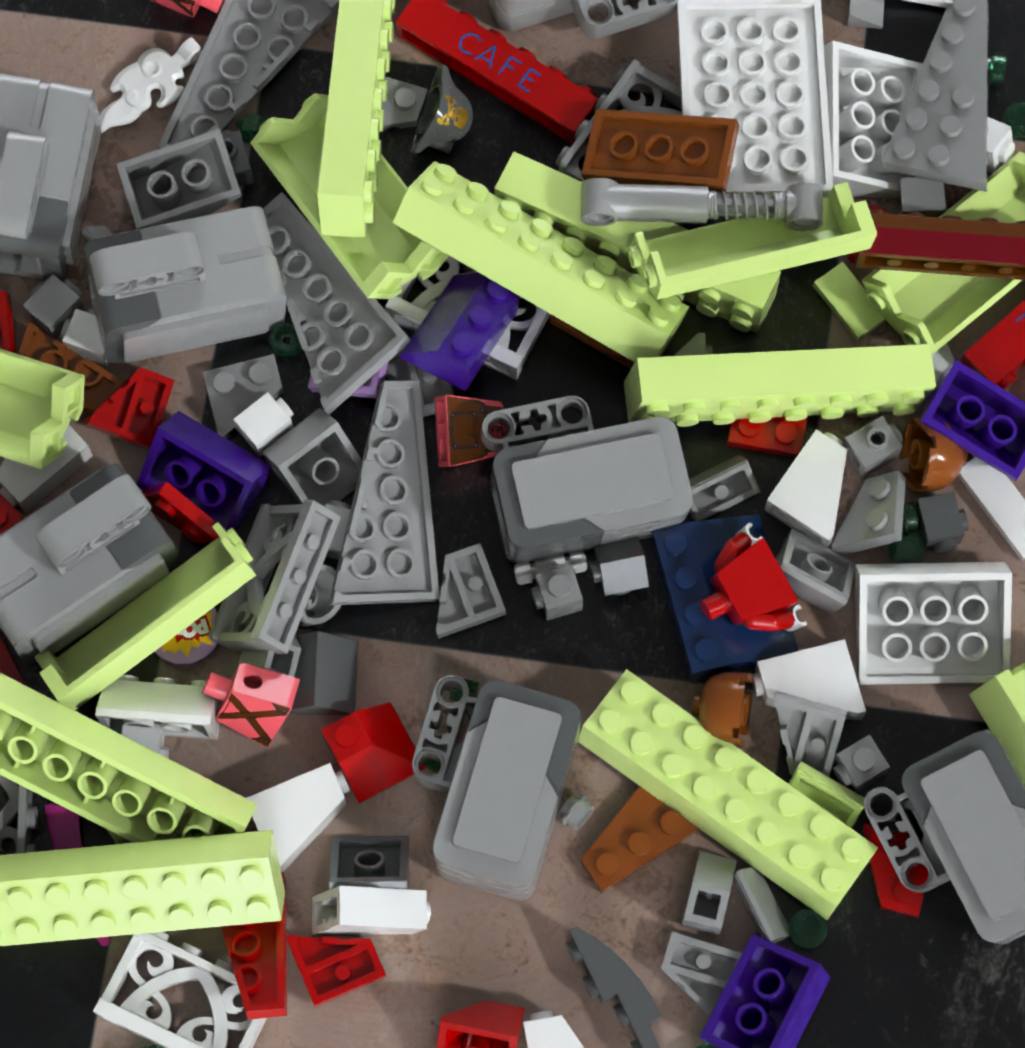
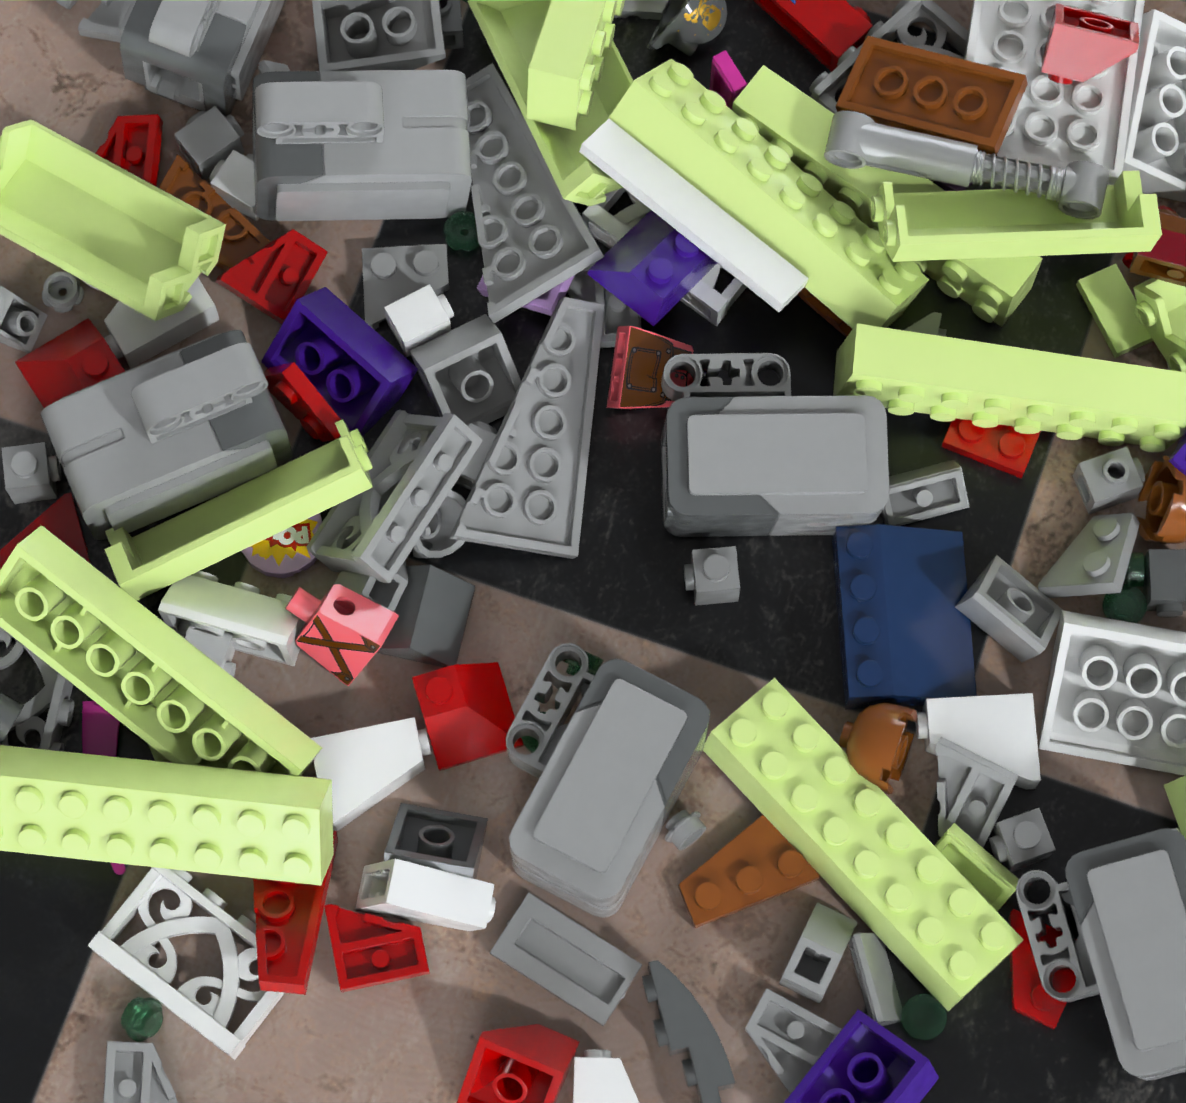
camera: 10 degrees right, 0 degrees up
(467, 592) = (611, 555): light grey wing -> none
(481, 291) = (693, 215): none -> white tile
(484, 169) = (726, 78): none -> dark pink tile
(498, 941) = (566, 959): none -> light grey piece
(527, 572) = (681, 545): white axle -> none
(620, 566) = (790, 560): brick -> none
(751, 587) = (936, 612): red torso -> none
(781, 81) = (1086, 44): none -> slope
(811, 489) = (1028, 514): white slope -> none

